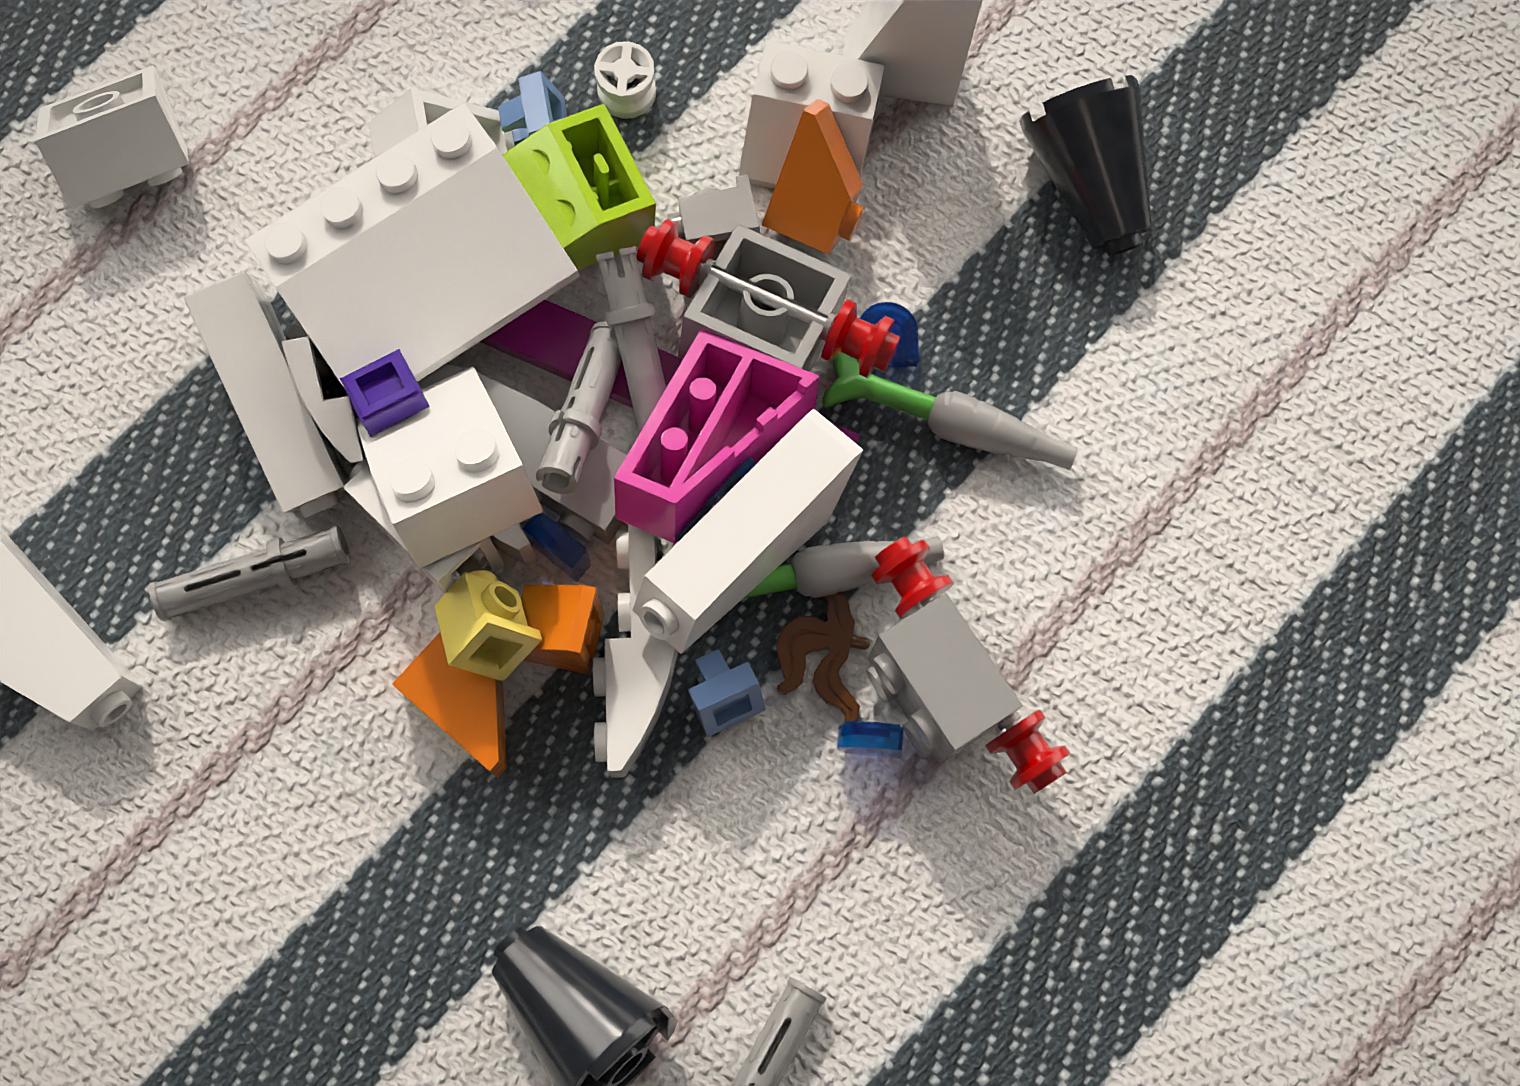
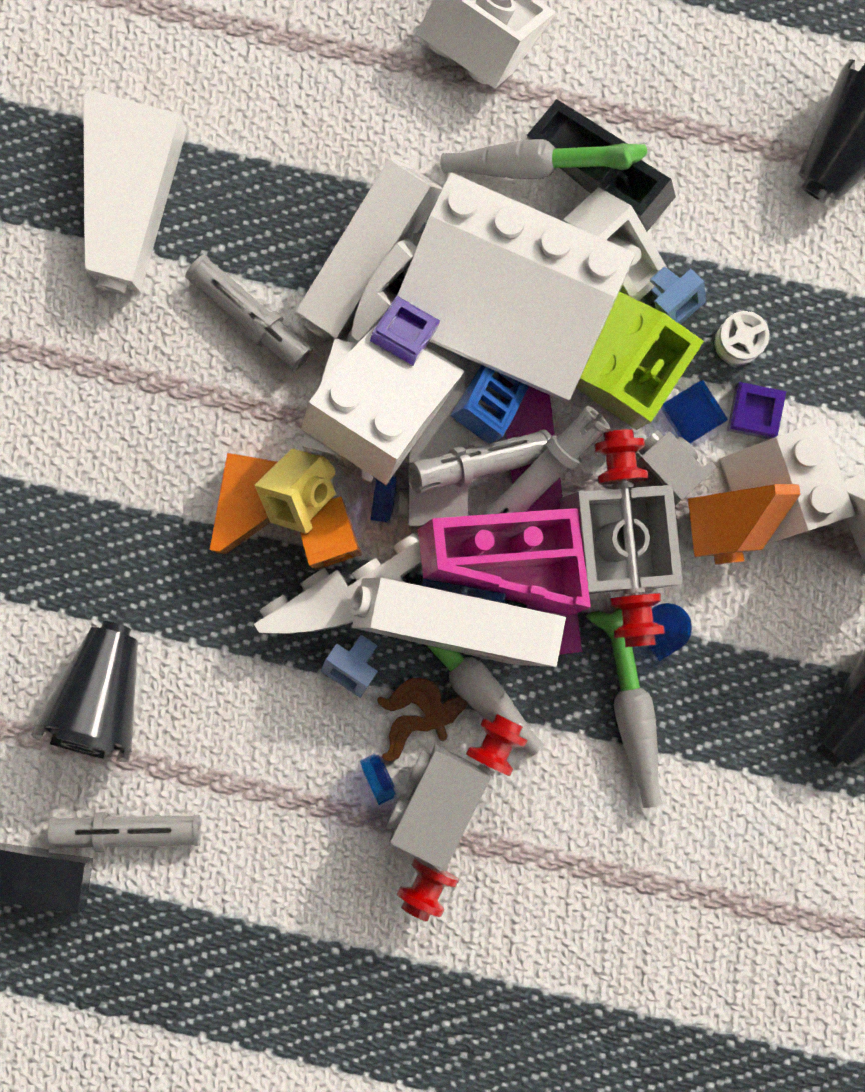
camera: 65 degrees right, 10 degrees up
(296, 160) = (539, 159): none -> light grey piece
(335, 107) = (639, 186): none -> black slope
(533, 381) = (479, 420): none -> blue slope
(673, 170) = (694, 412): none -> clear blue tile
(711, 112) = (756, 410): none -> dark purple tile

